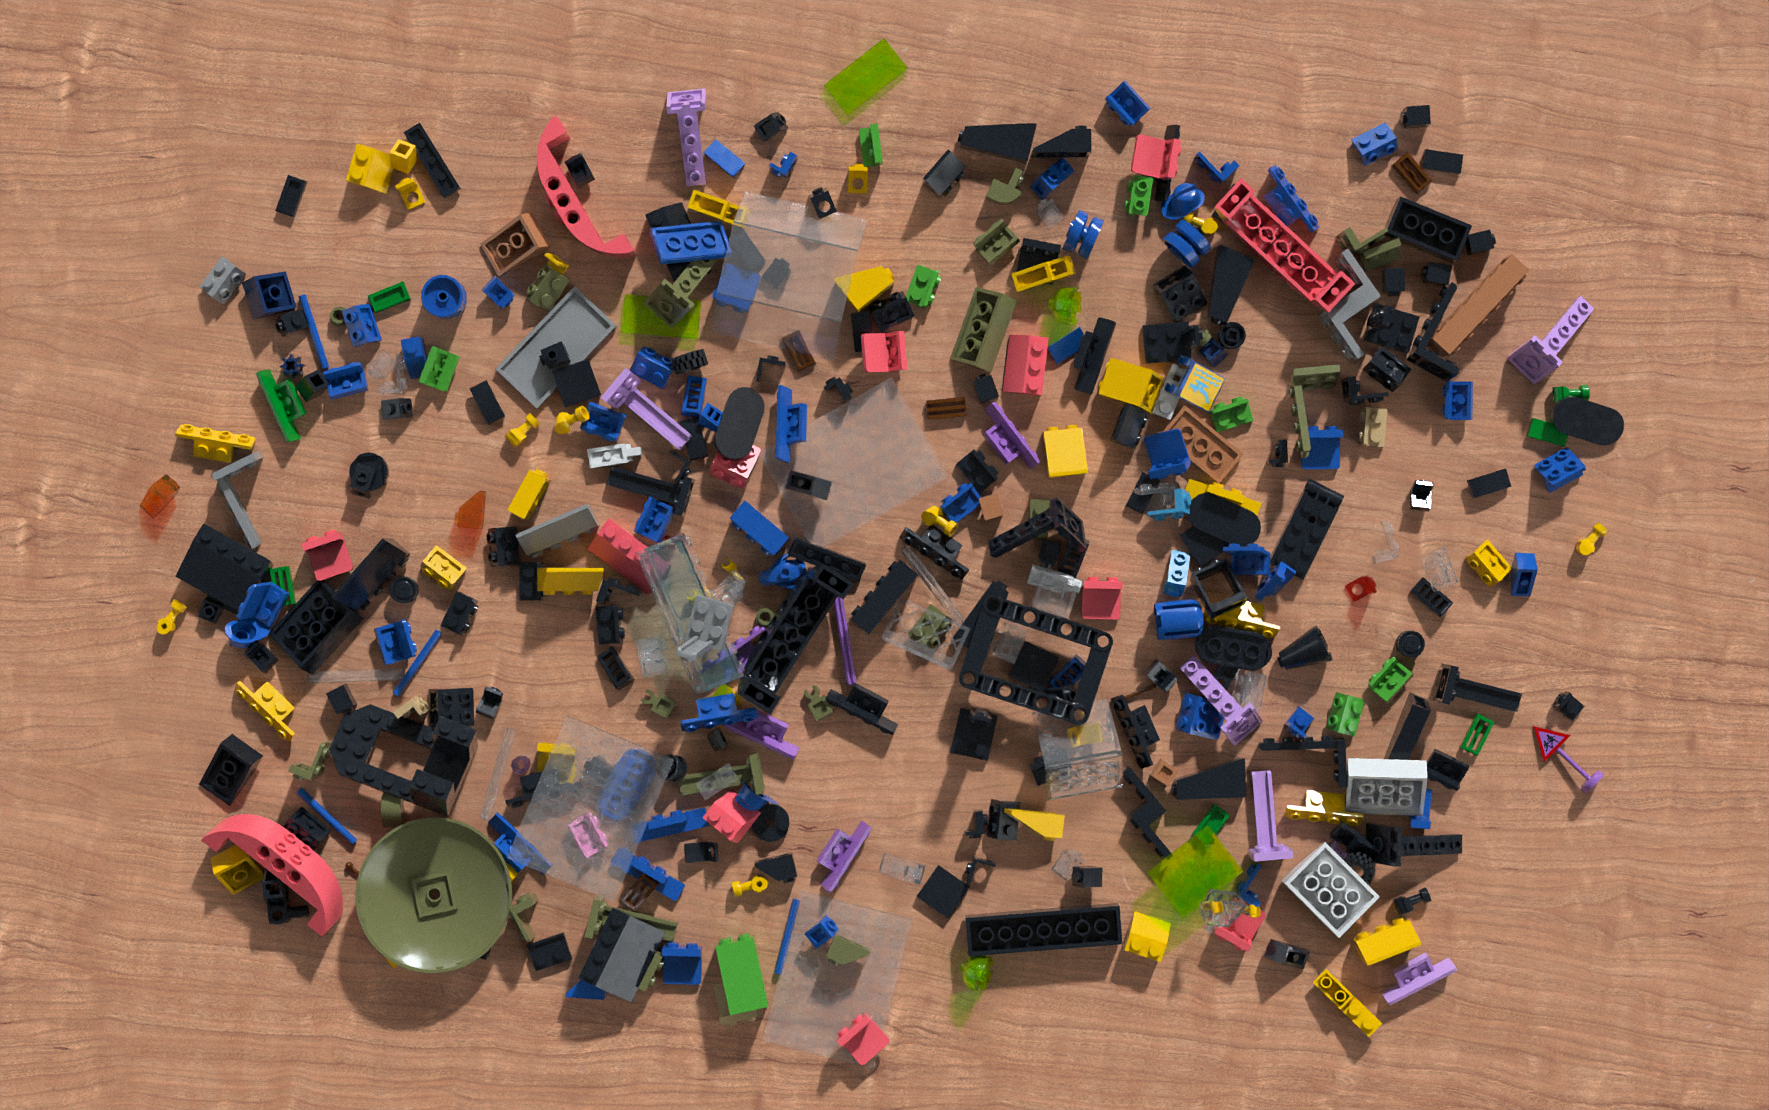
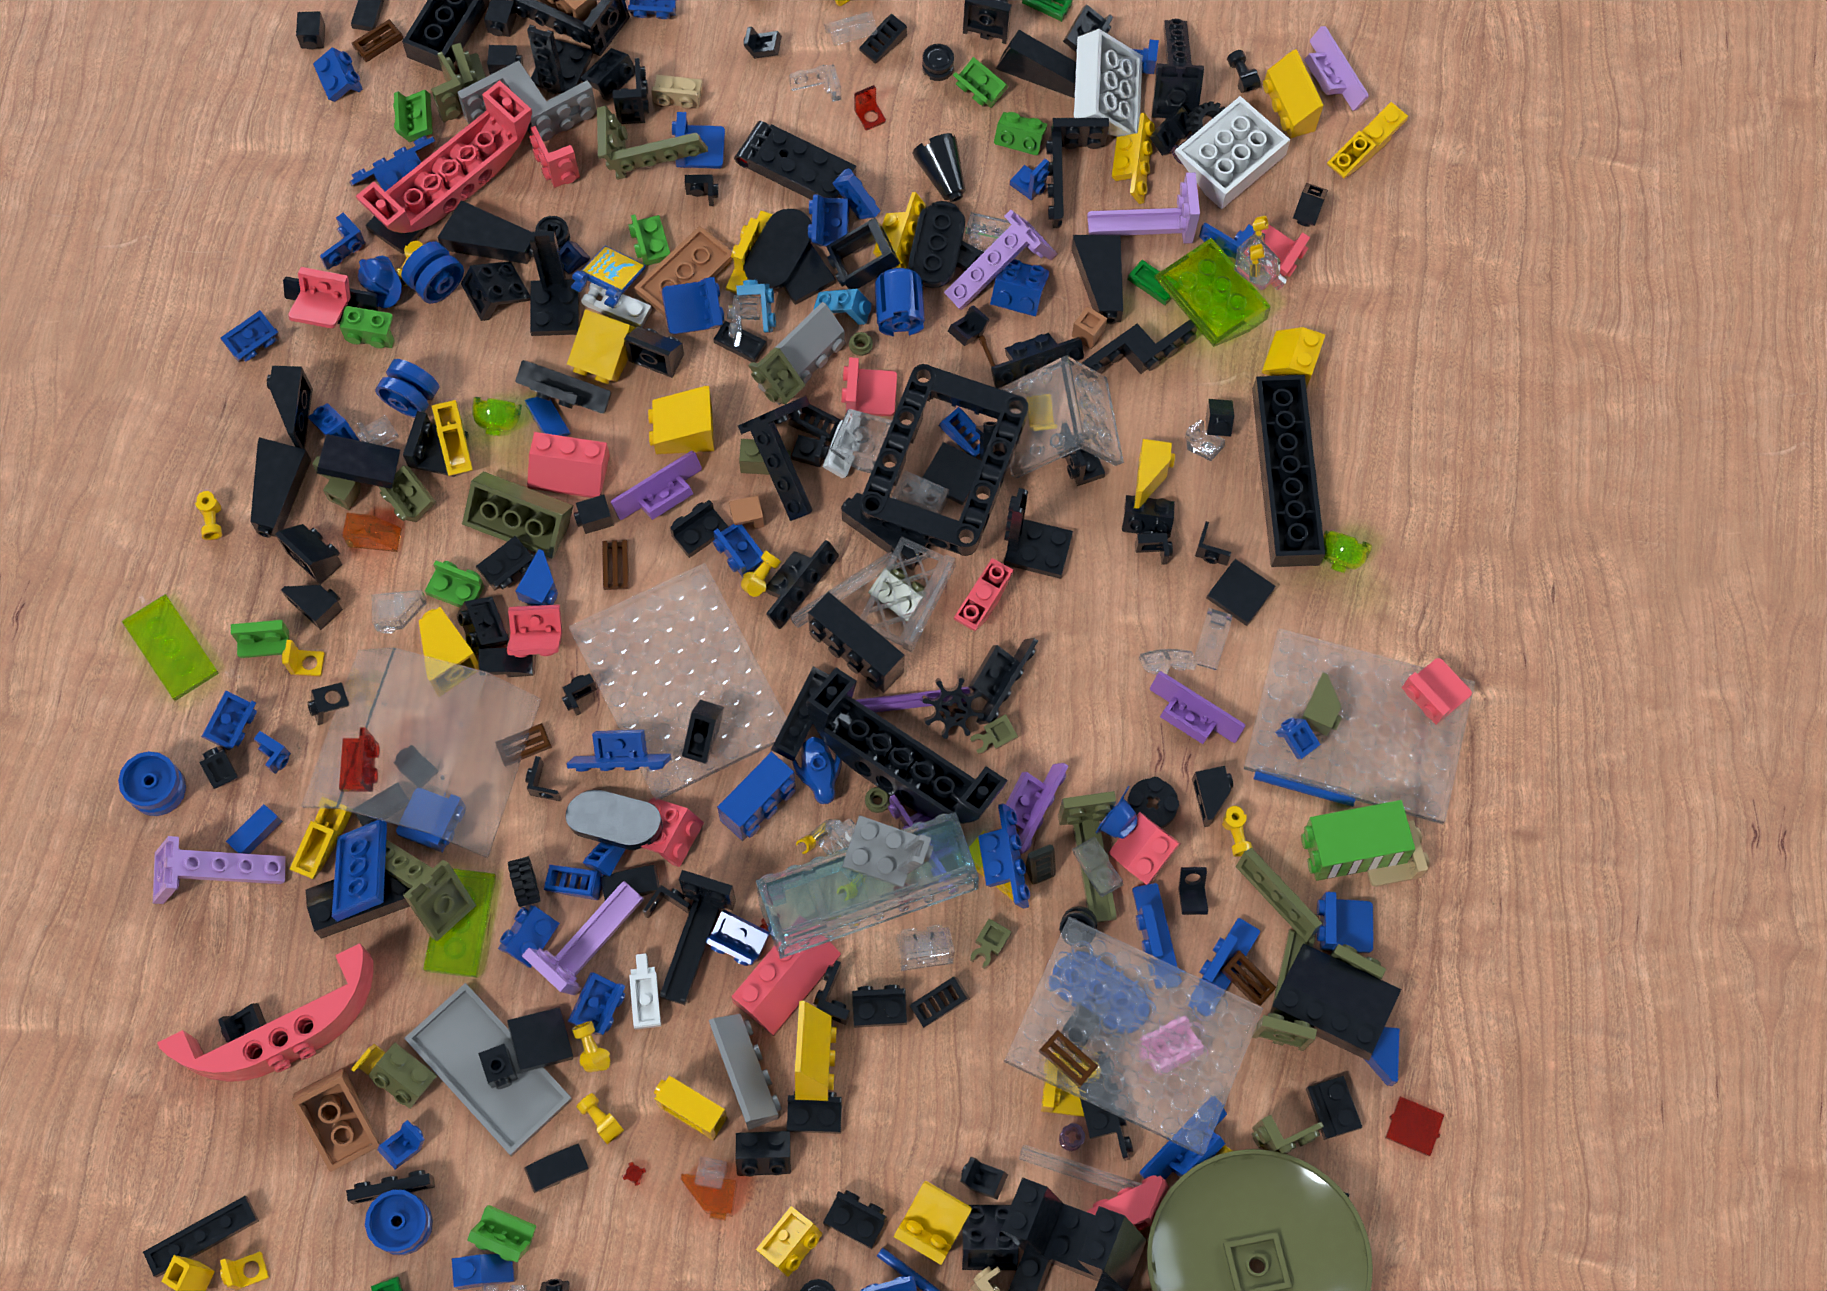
camera: 90 degrees left, 20 degrees down
(456, 667) = (933, 1222): none -> yellow bracket
(469, 287) = (366, 1192): none -> black plate
(470, 806) = (1137, 1203): none -> coral slope
(485, 511) = (711, 1172): none -> clear bracket
(486, 456) = (634, 1173): none -> clear red piece
(539, 1009) = (1414, 1126): none -> clear red piece
(578, 748) = (1061, 1066): none -> reddish brown tile
(700, 915) = (1279, 895): none -> olive plate
(753, 92) = (152, 783): none -> blue wheel
(764, 234) = (358, 763): none -> clear red bracket
(806, 130) = (229, 720): none -> blue bracket
(836, 671) = (957, 716): none -> black gear
(882, 829) = (1164, 658): none -> clear slope
(899, 243) = (396, 609): none -> clear slope
(903, 182) = (314, 603): none -> black slope
(926, 351) = (537, 583): none -> blue slope
(926, 692) = (984, 595): none -> coral slope
(941, 325) = (505, 563): none -> black bracket
(962, 219) = (370, 533): none -> clear orange slope
(981, 90) = (208, 507): none -> yellow leg
(1018, 203) = (358, 461): none -> black tile
(1100, 526) = (777, 377): none -> olive bracket
(1127, 542) = (812, 342): none -> light grey slope
(1139, 594) = (857, 338): none -> olive plate
(1289, 338) = (558, 165): none -> coral bracket
(1337, 211) = (413, 115): none -> bright green bracket

